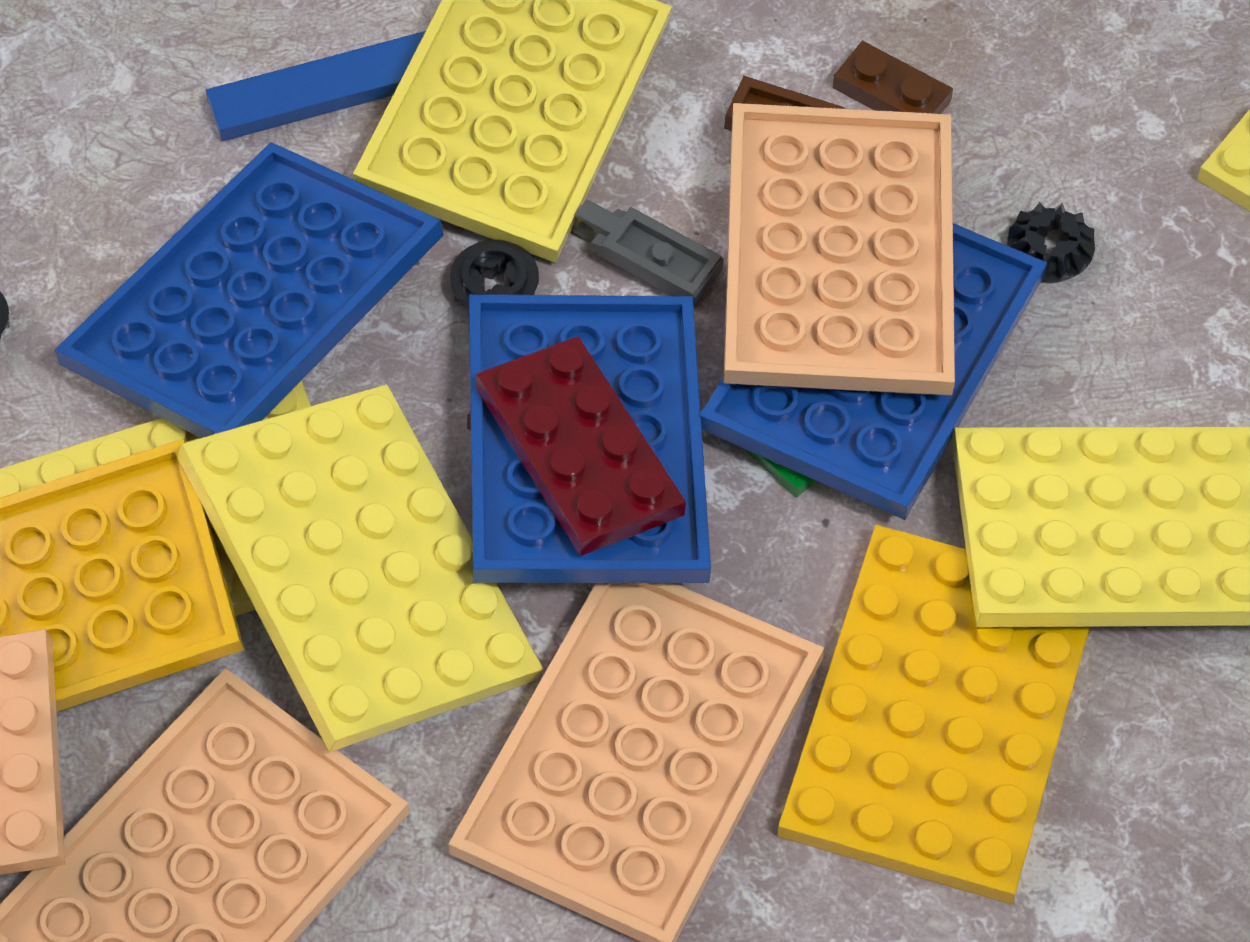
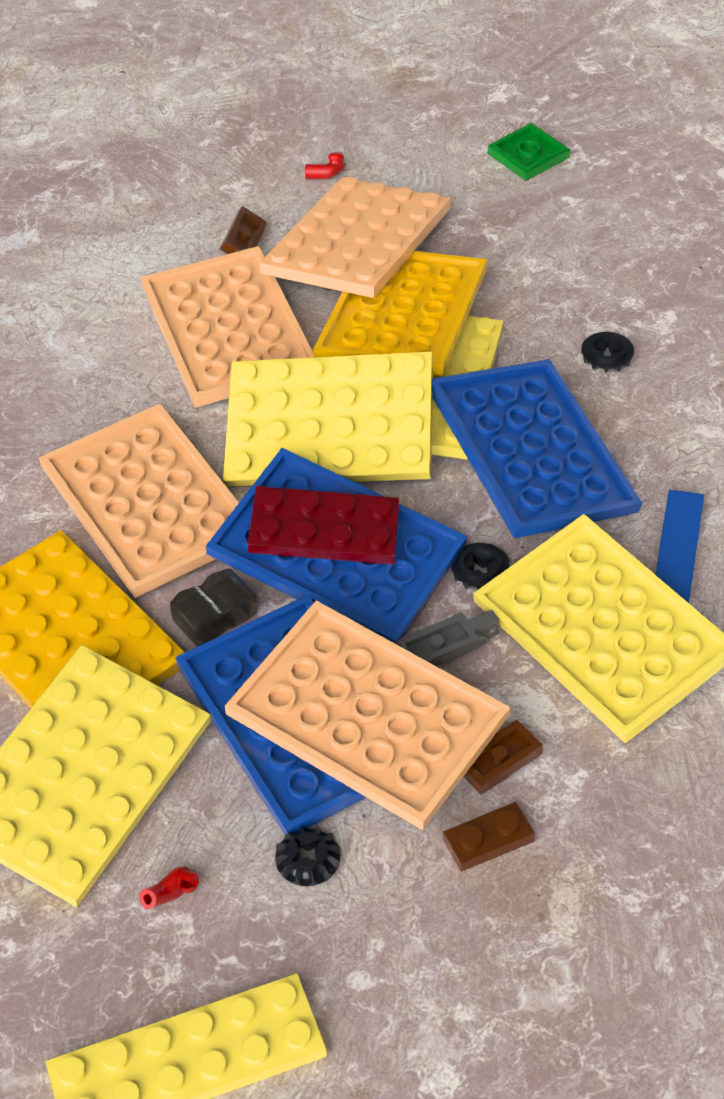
camera: 125 degrees right, 10 degrees down
(780, 537) = (213, 606): none -> clear smoke brick
(1202, 348) = (169, 888): none -> red arm

